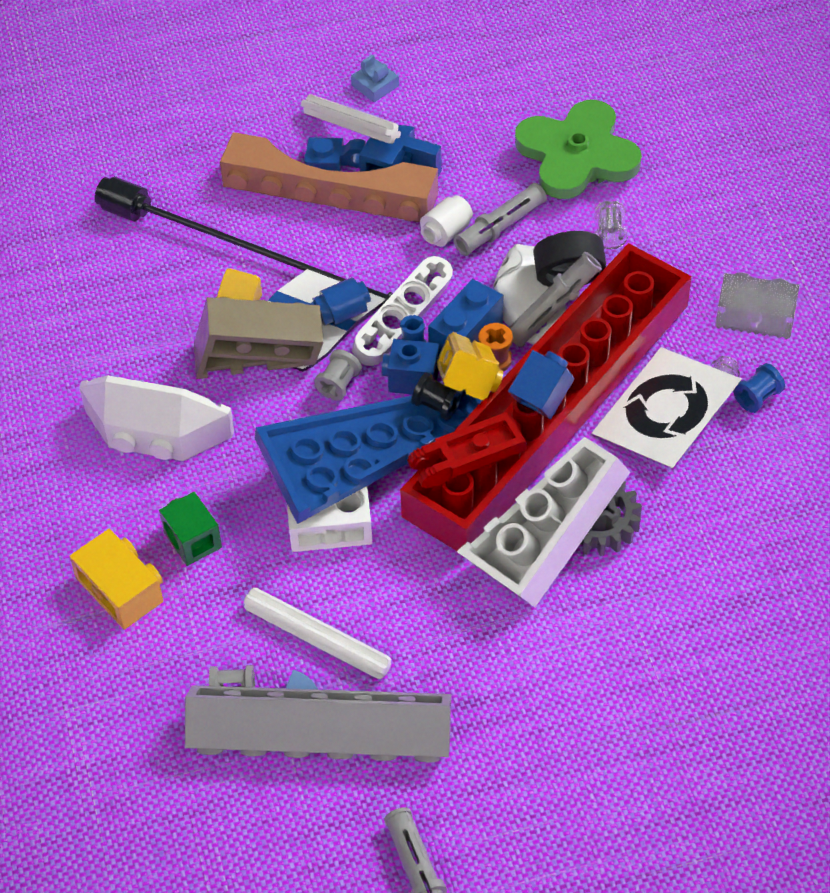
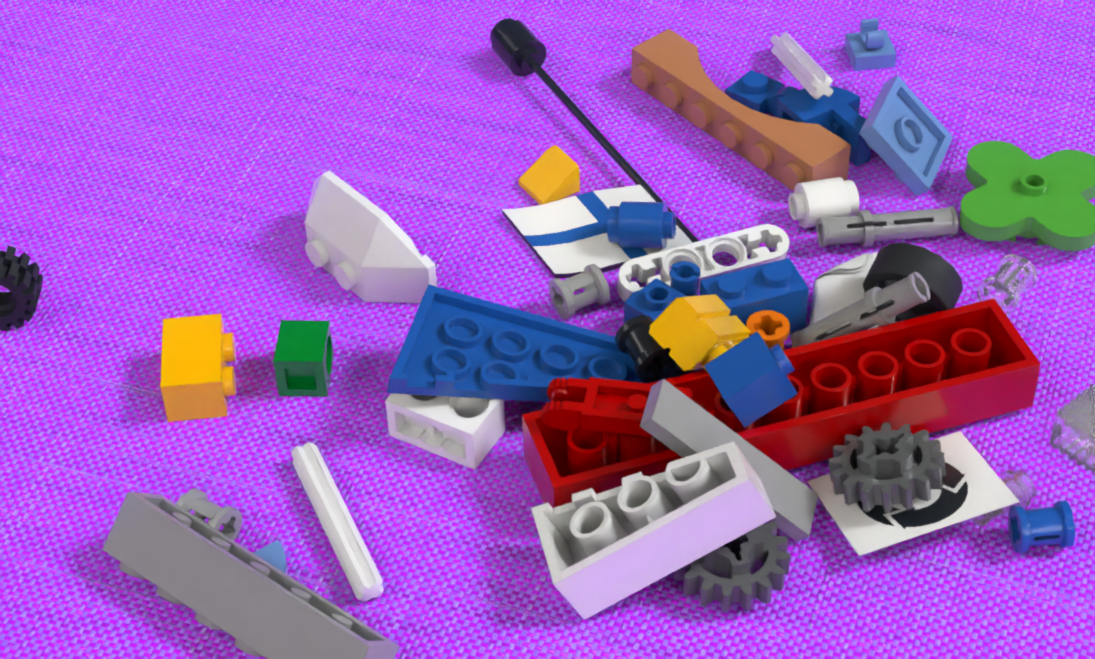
camera: 35 degrees right, 10 degrees down
(256, 333) = (523, 212): dark tan wedge -> none
(465, 142) = (906, 135): none -> medium blue plate
(543, 443) = (691, 429): none -> light grey tile
(648, 398) = (887, 467): none -> dark grey gear

